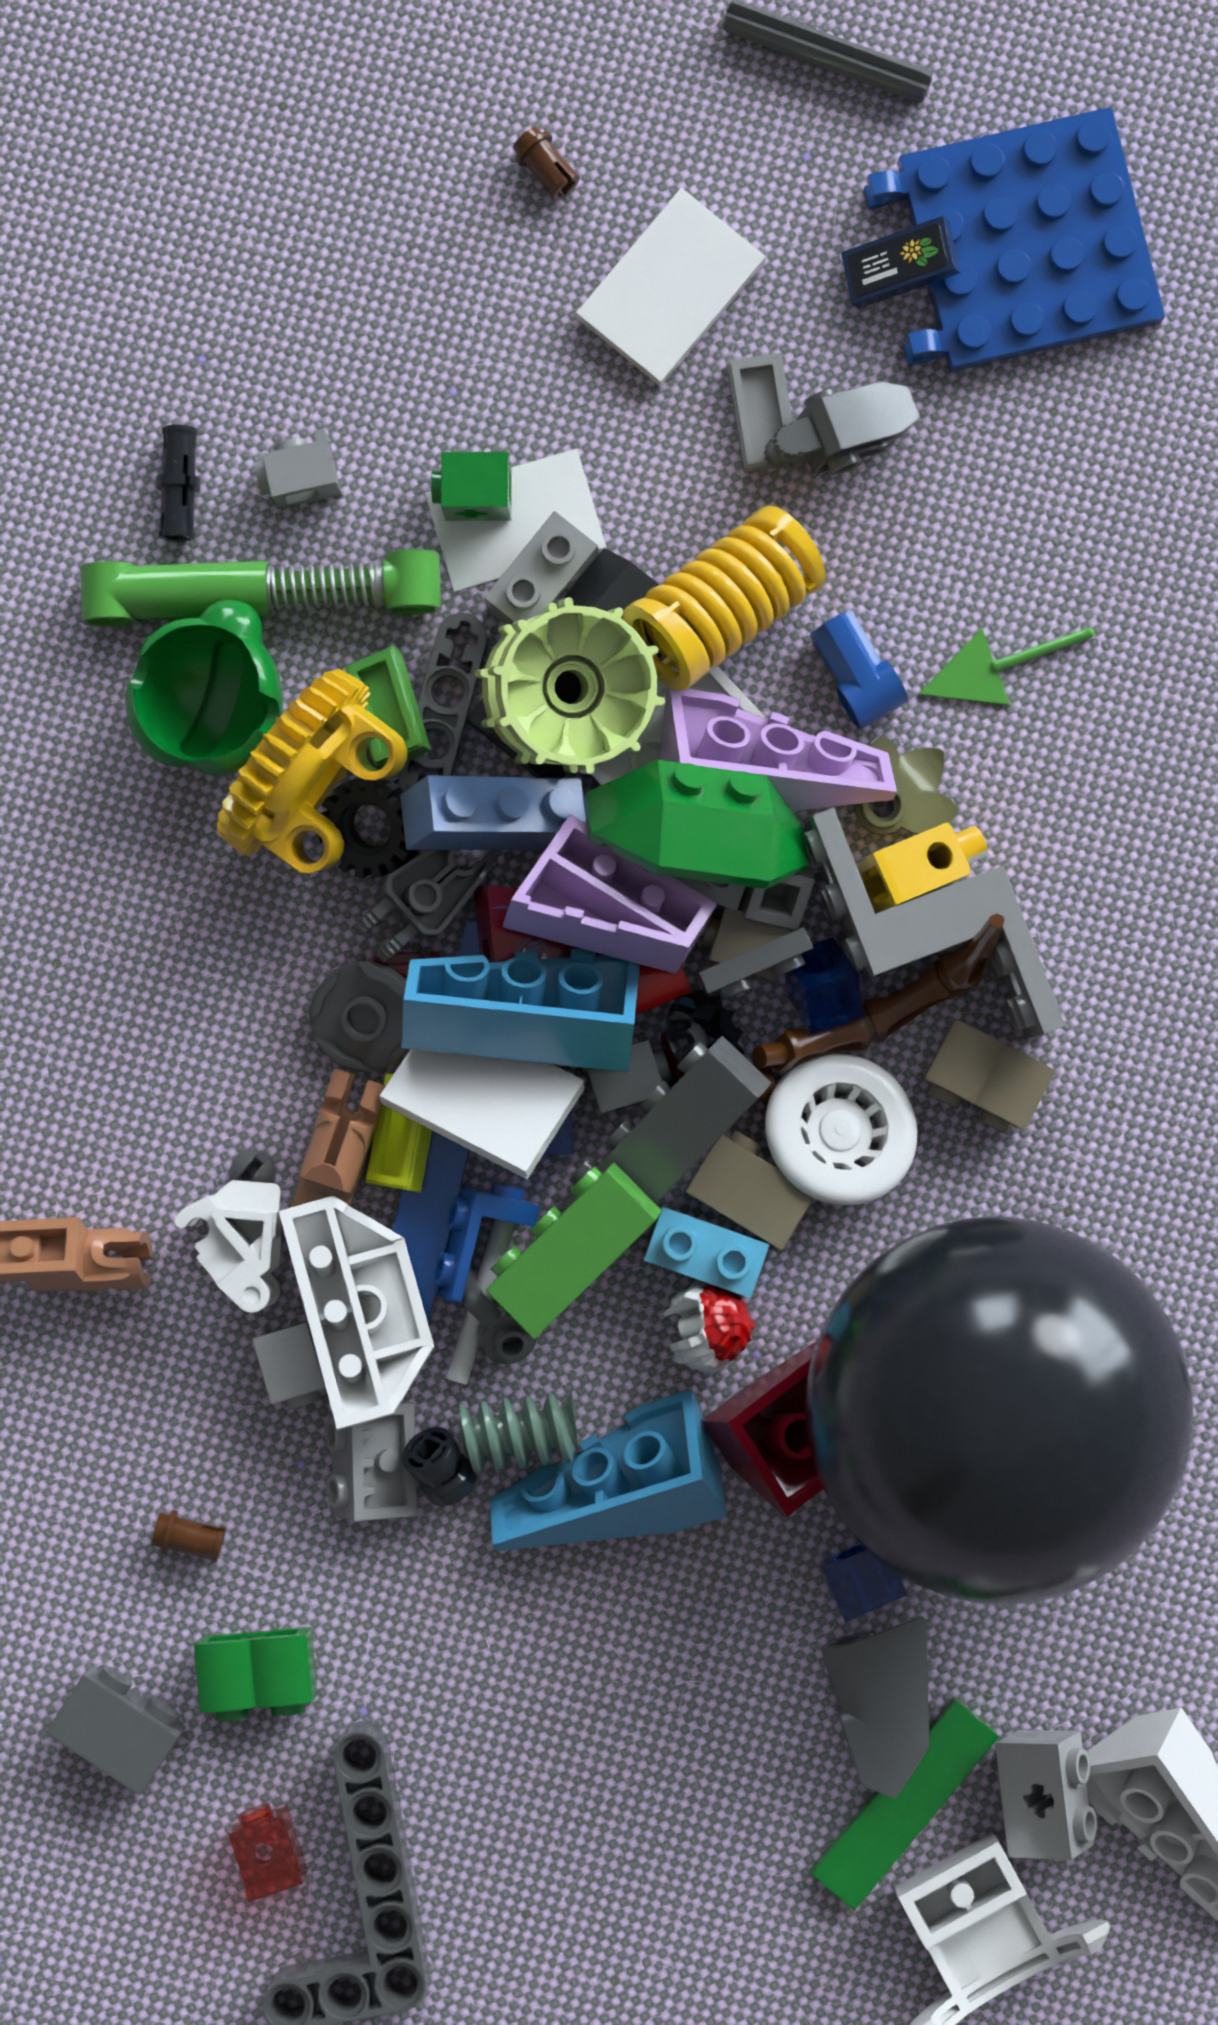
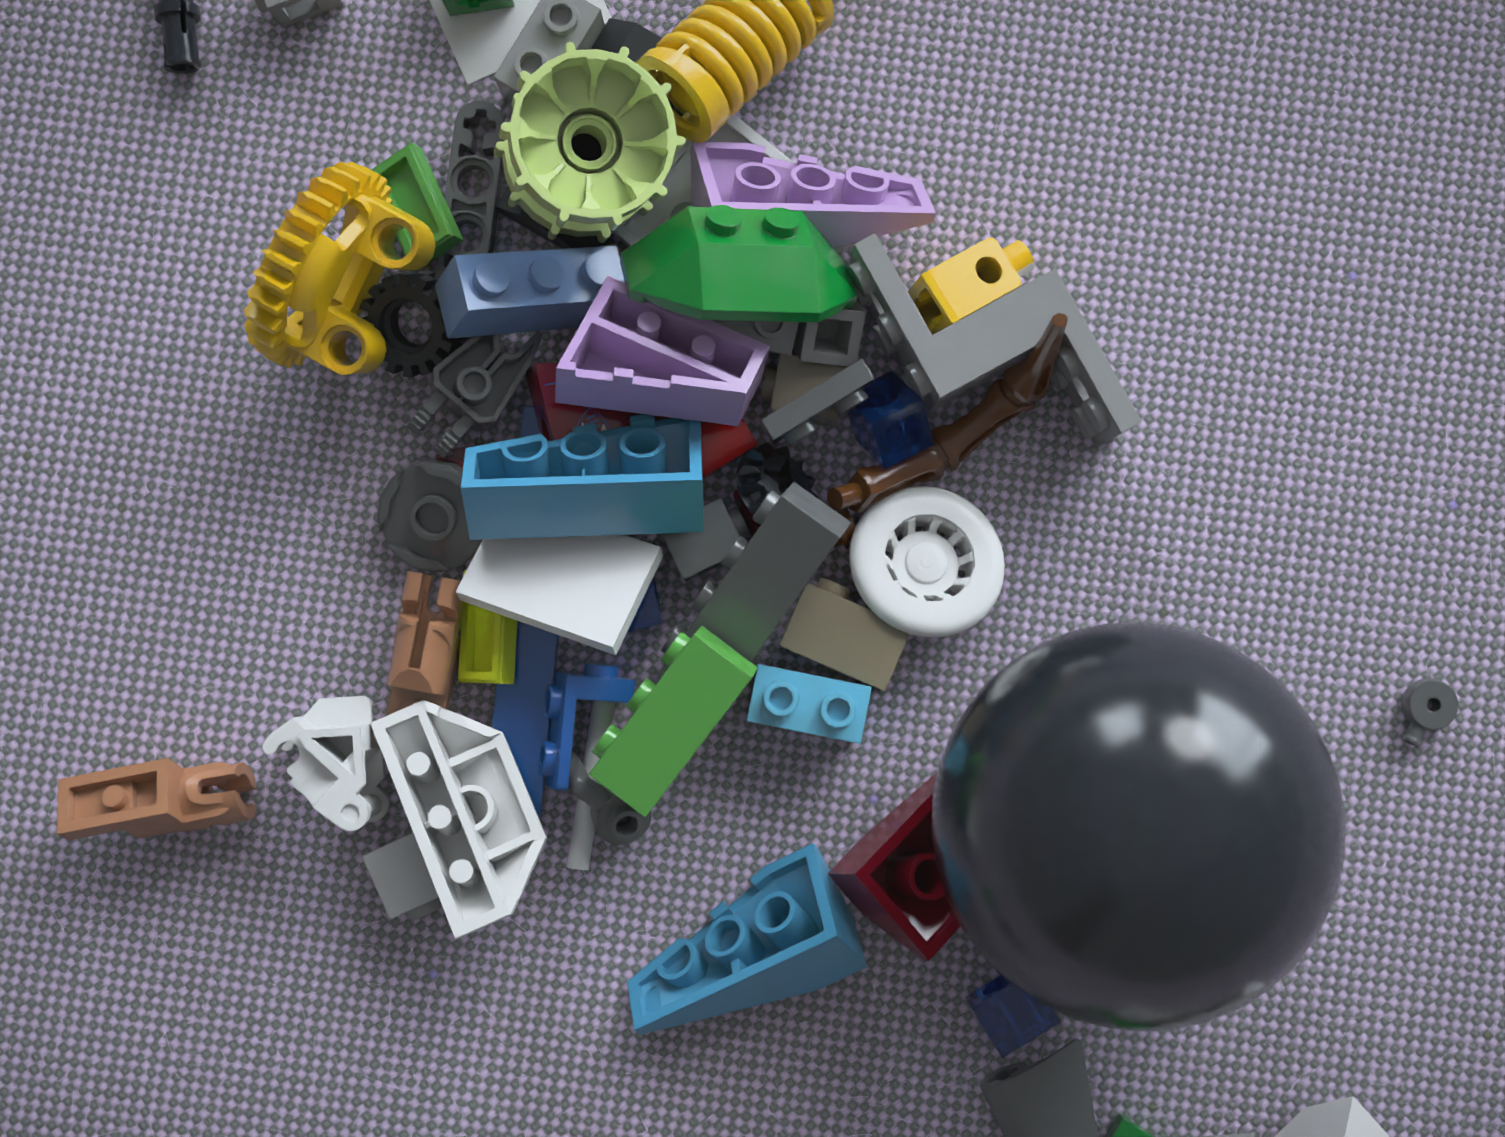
camera: 10 degrees left, 0 degrees up
(125, 593) = (134, 129): bright green piece -> none
(188, 1537) = (327, 1063): reddish brown pin -> none
(205, 690) = (218, 204): green piece -> none
(241, 1163) = (356, 686): dark grey hinge -> none
(369, 1468) = (506, 968): light grey bracket -> none
(439, 1466) = (570, 958): black wheel -> none
(519, 1433) = (646, 912): sand green piece -> none
(712, 1325) = (825, 777): piece -> none
(864, 682) = (887, 115): blue piece -> none
(916, 802) = (954, 224): olive plate -> none
(975, 675) = (994, 94): bright green piece -> none
(987, 1076) = (1065, 488): dark tan brick -> none

